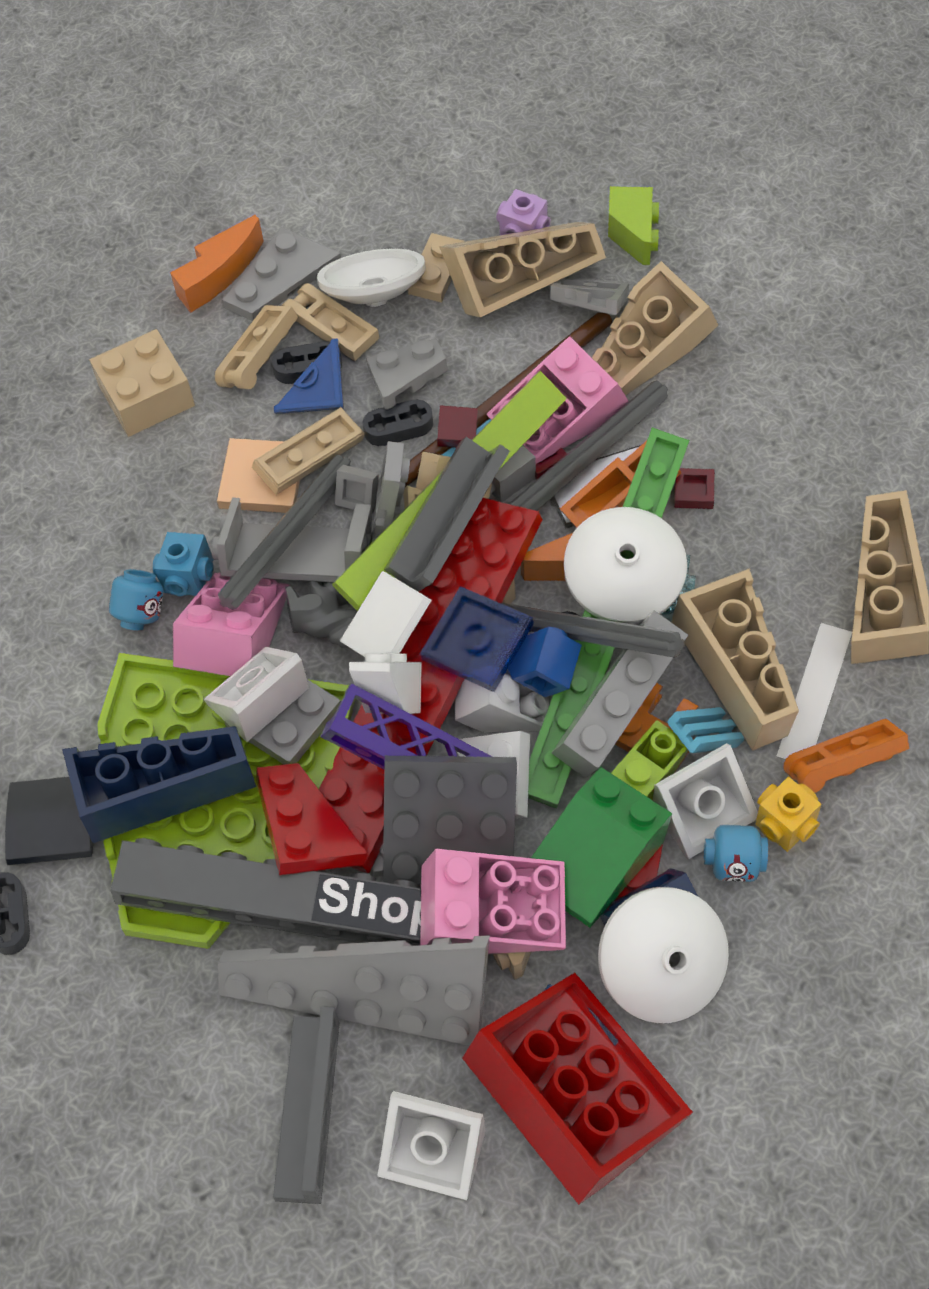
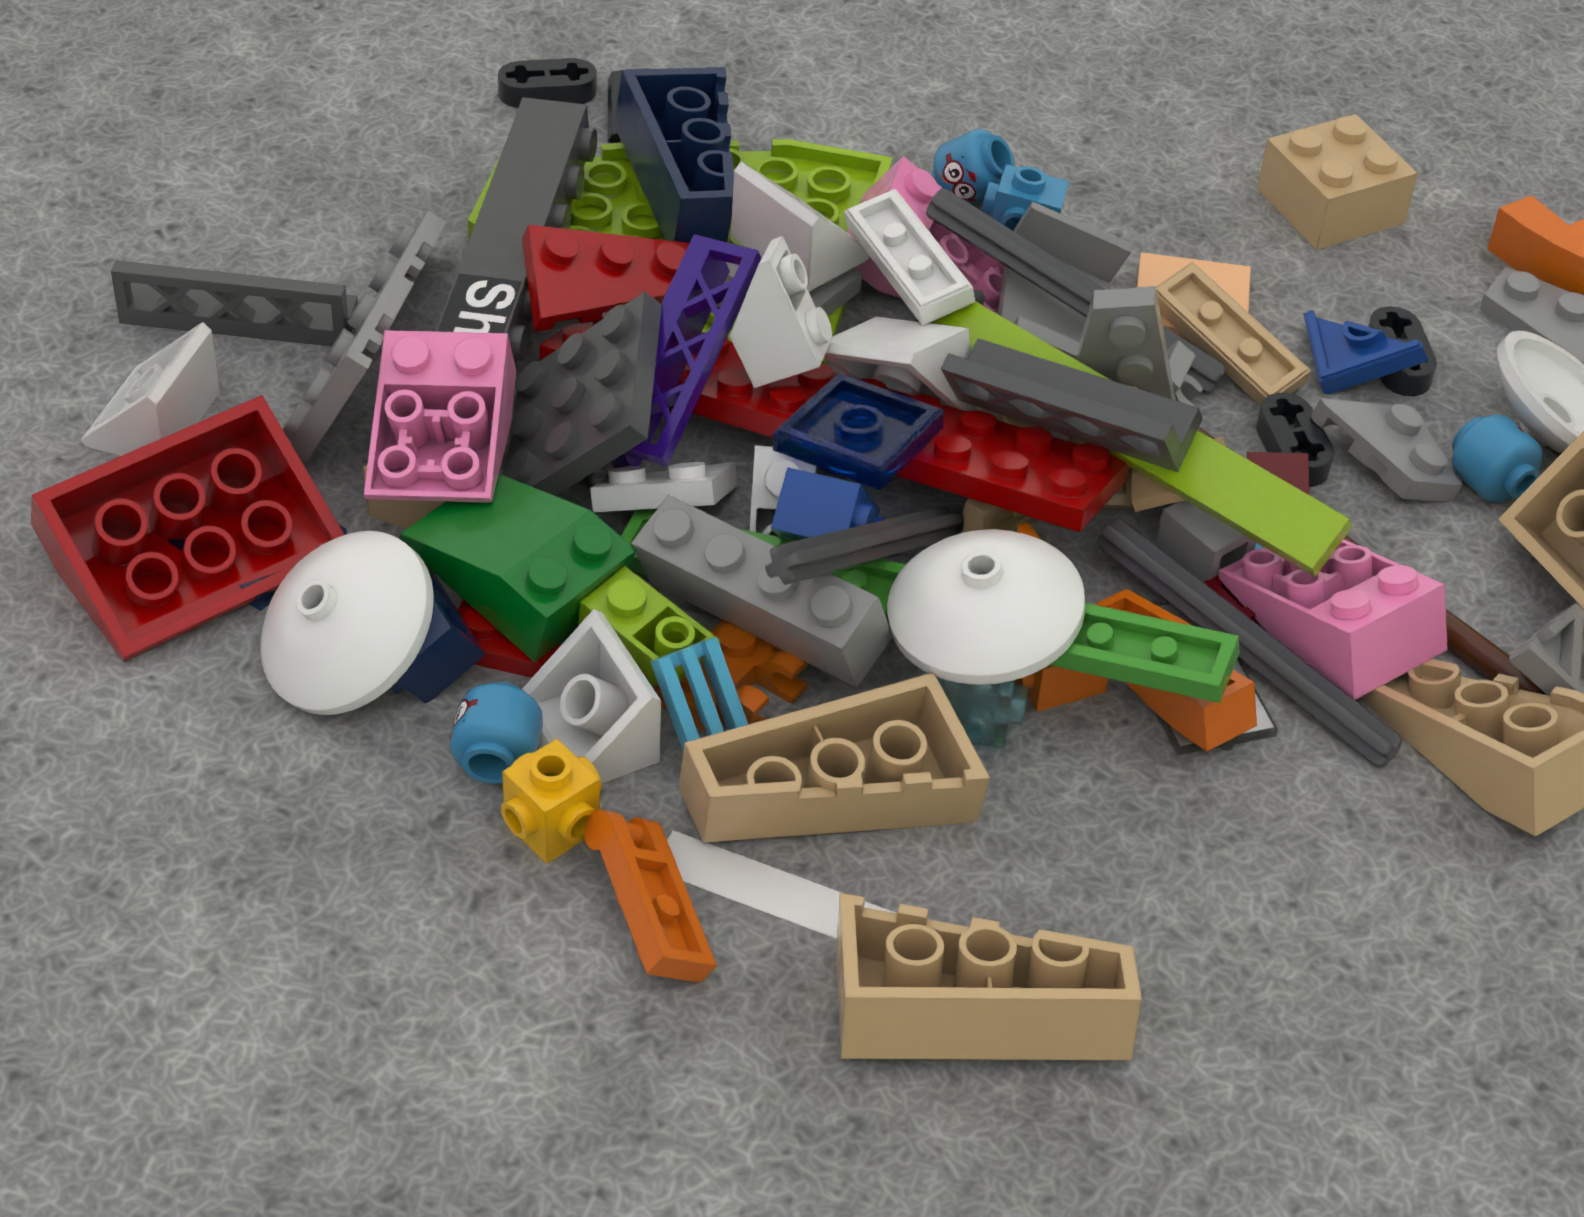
camera: 85 degrees right, 15 degrees down
(255, 347) = (1416, 292): tan plate -> none
(303, 610) = (909, 257): none -> white tile
(332, 321) = (1466, 380): tan plate -> none
(419, 315) = (1496, 457): none -> dark azure head
(695, 489) = (1184, 777): dark red tile -> none

